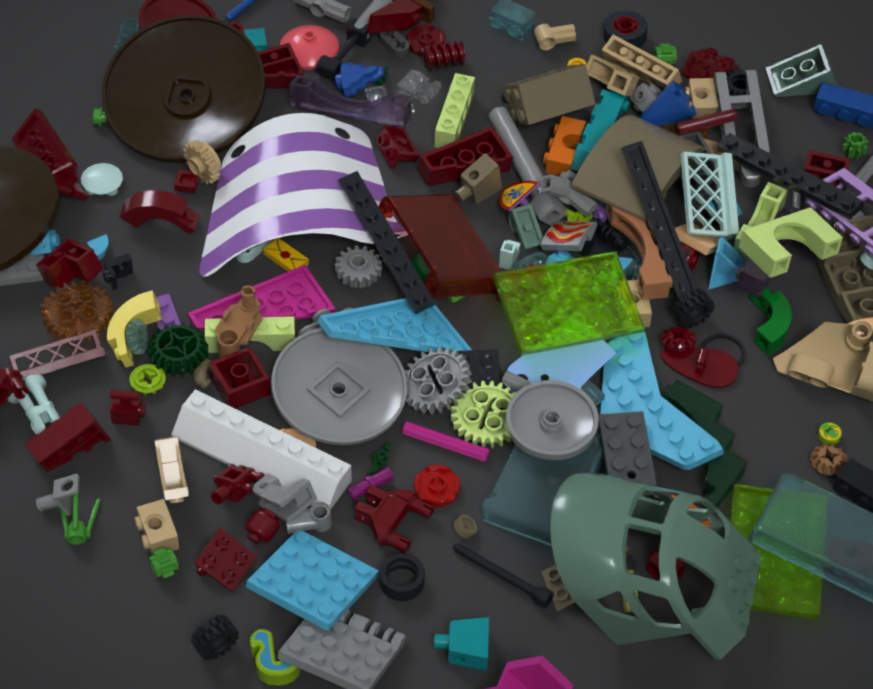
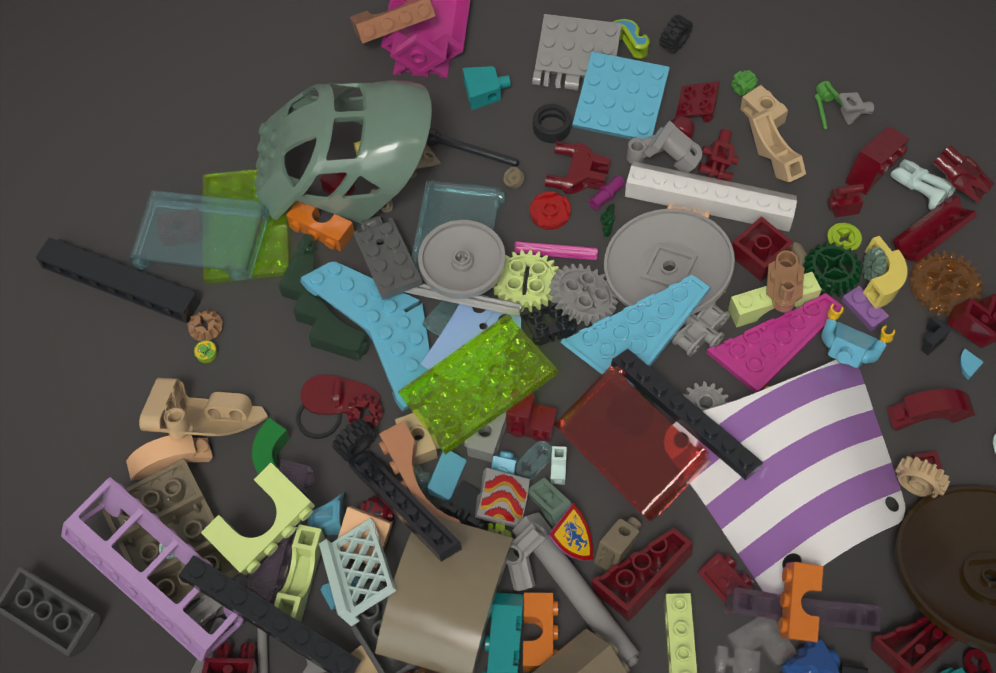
camera: 170 degrees right, 10 degrees up
(200, 272) = (851, 345): none -> medium azure torso
(357, 93) = (795, 622): none -> orange arch

